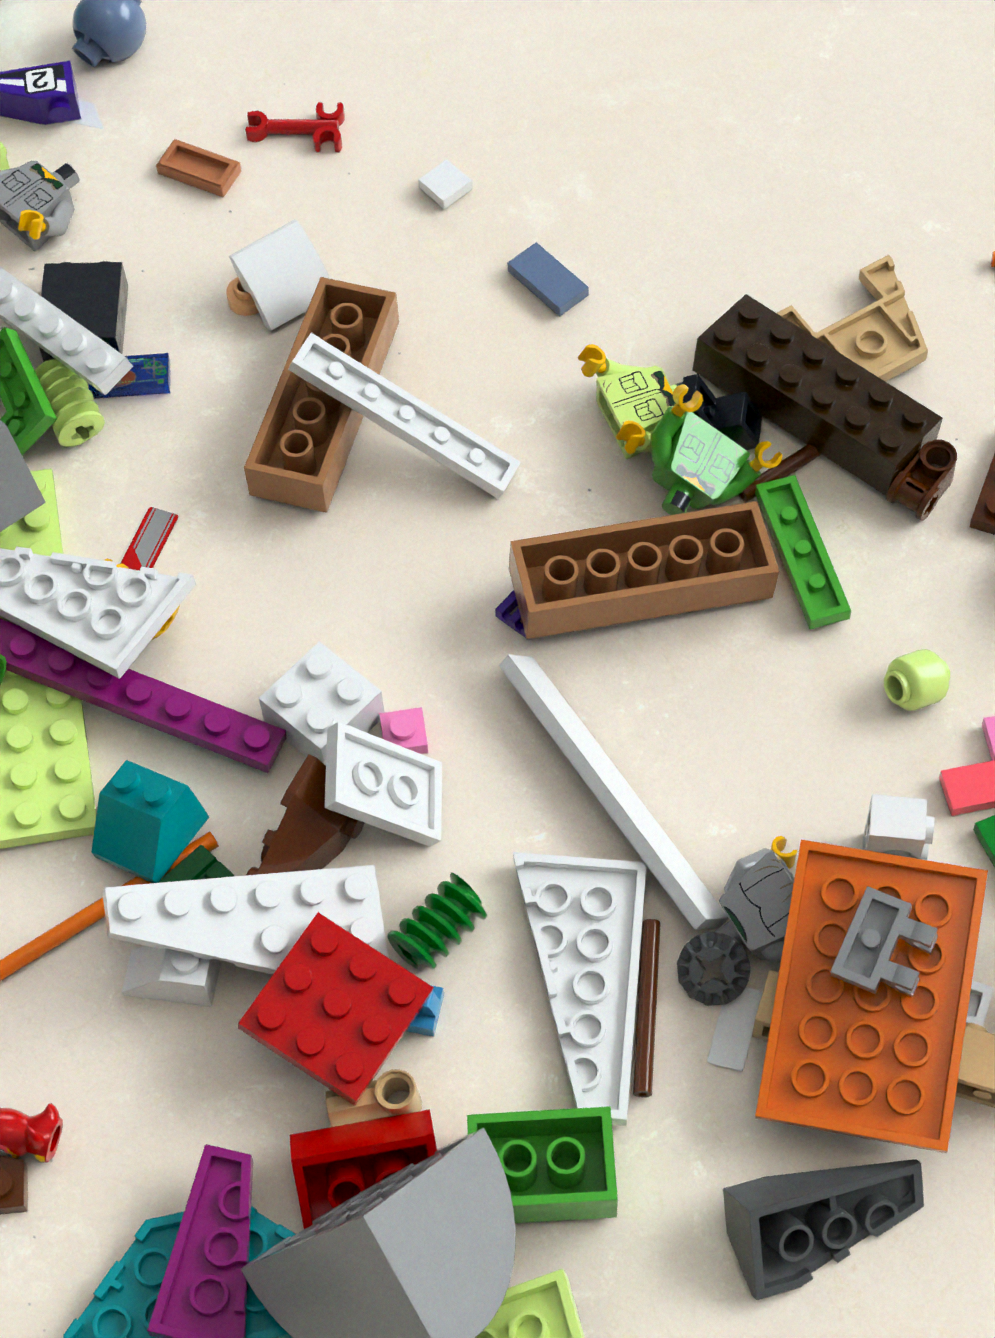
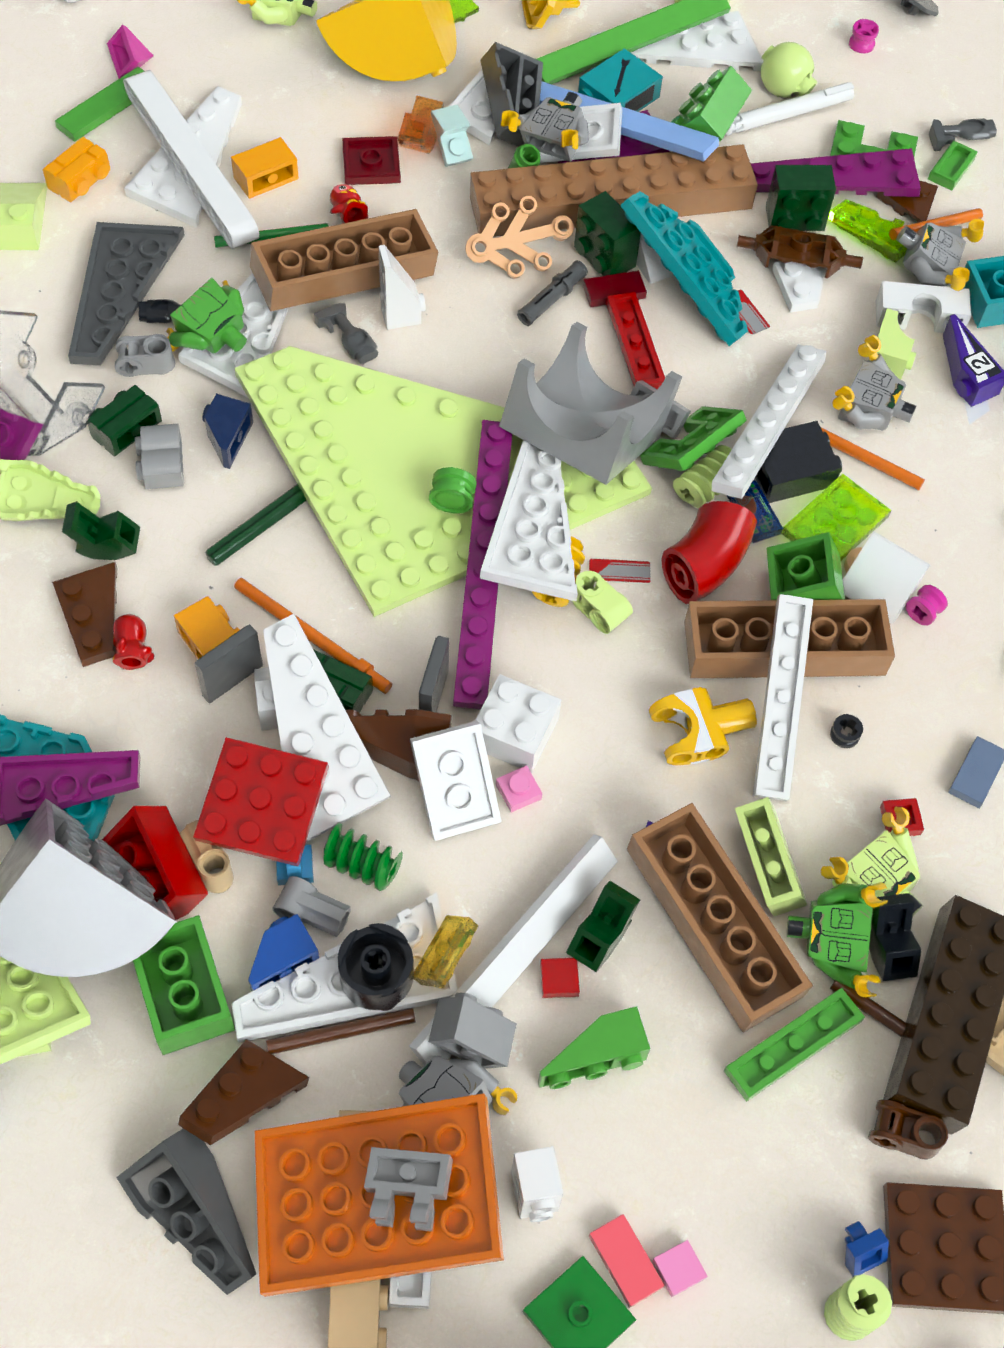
camera: 65 degrees right, 0 degrees up
(56, 1030) = (203, 626): none -> light orange brick
(116, 1008) = (229, 663): none -> dark grey tile
(117, 232) = (874, 461): none -> orange bar
(145, 821) = (382, 637): teal slope -> none
(177, 433) = (708, 550): none -> red brick
(183, 298) = (843, 511): none -> clear neon green plate
(198, 168) = (963, 495): nougat tile -> none
(203, 560) = (601, 603): none -> yellowish green piece
(238, 775) = (435, 675): none -> dark grey tile
(249, 343) = (806, 569): none -> bright green brick
(332, 248) = (926, 605): none -> dark pink wheel
(395, 514) = (702, 723): none -> yellow connector
(450, 391) = (851, 739): none -> black bush
(475, 1007) = (311, 906): none -> light grey piece
(533, 1044) = (281, 951): none -> blue slope
(569, 367) = (915, 825): none -> red plate
(578, 935) = (365, 950): none -> black brick
(586, 497) = (770, 857): none -> yellowish green brick
(597, 855) = (445, 951): none -> clear yellow plate
(613, 691) = (603, 927): none -> dark green brick
(654, 757) = (559, 977): none -> red tile
(697, 1128) = (238, 1091): none -> reddish brown wing
(702, 853) = (472, 1031): none -> light grey brick
(709, 947) = (379, 1086): dark grey gear -> none
(735, 1030) = (327, 1103): white sticker -> none
(750, 737) = (606, 1044): none -> bright green slope
(917, 680) = (702, 1171): yellowish green head -> none

